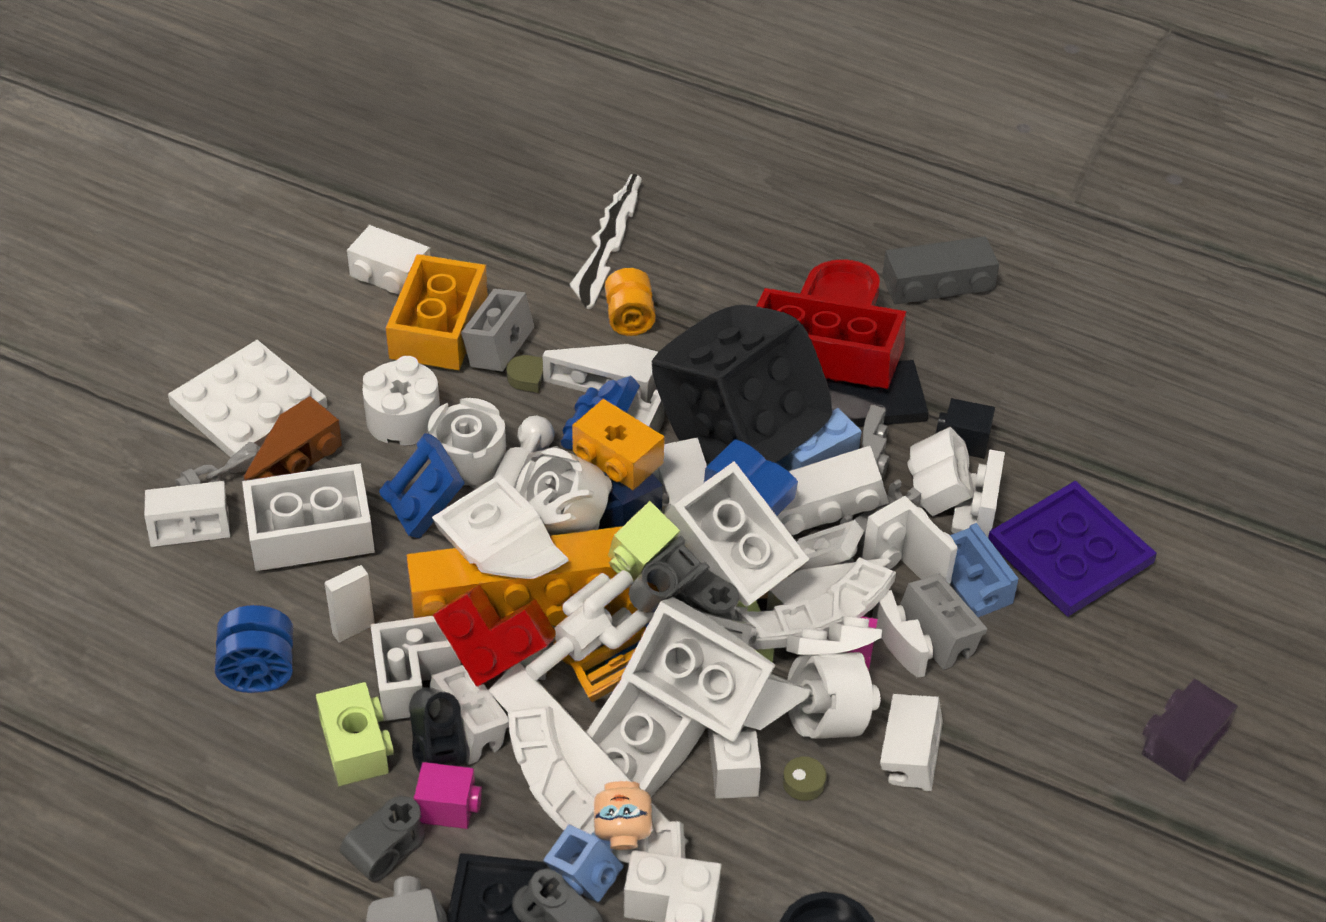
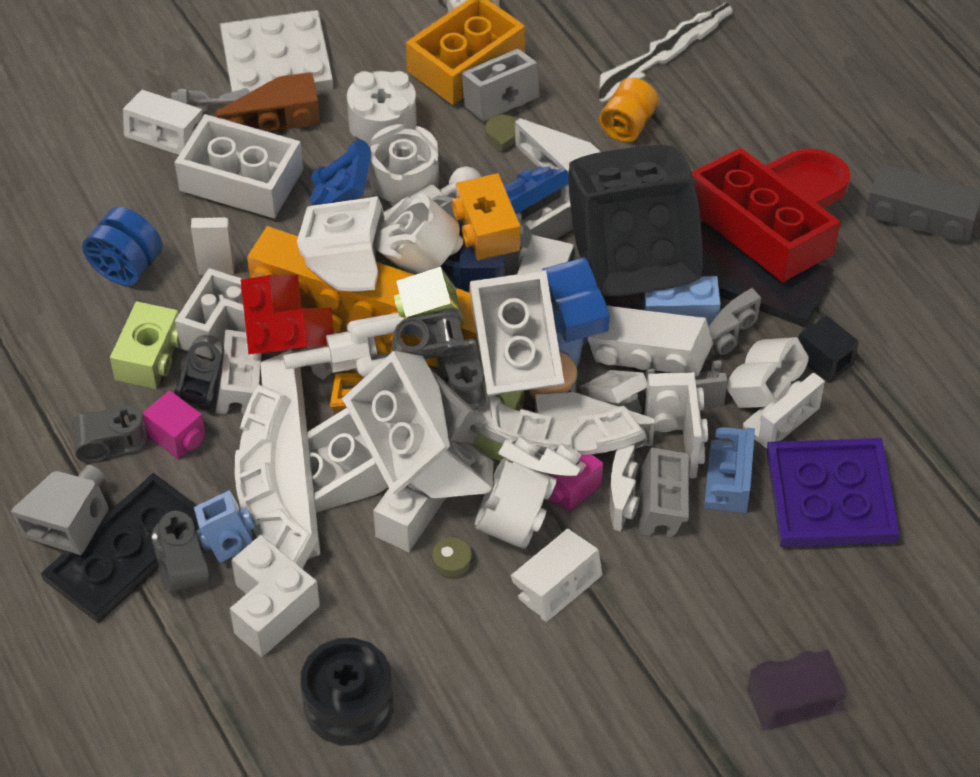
camera: 35 degrees right, 5 degrees up
(622, 814) = (269, 503): light nougat head -> none

